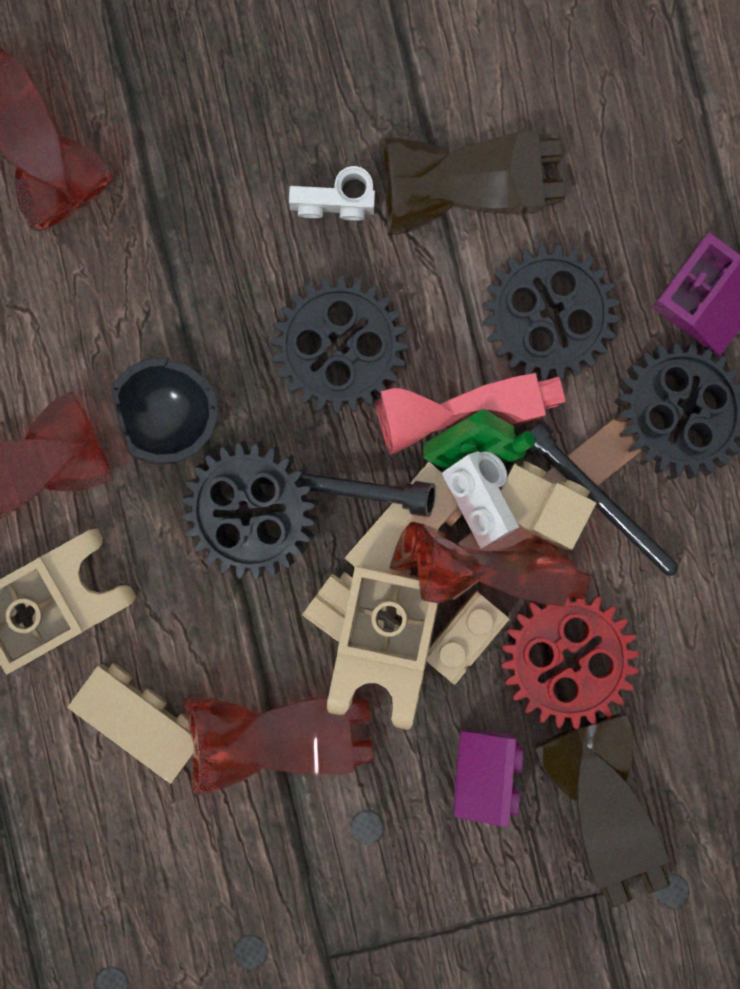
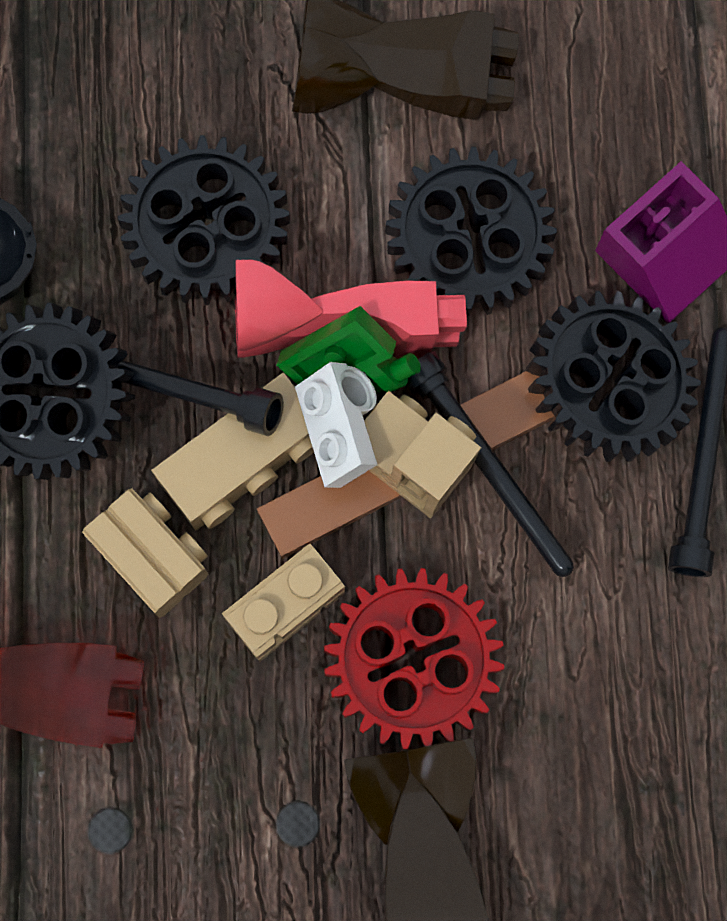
camera: 10 degrees right, 10 degrees down
(313, 201) = (220, 50): white plate -> none
(383, 654) = (164, 592): tan brick -> none
(485, 776) = (272, 787): magenta slope -> none
(524, 570) = (270, 491): clear red hips -> none

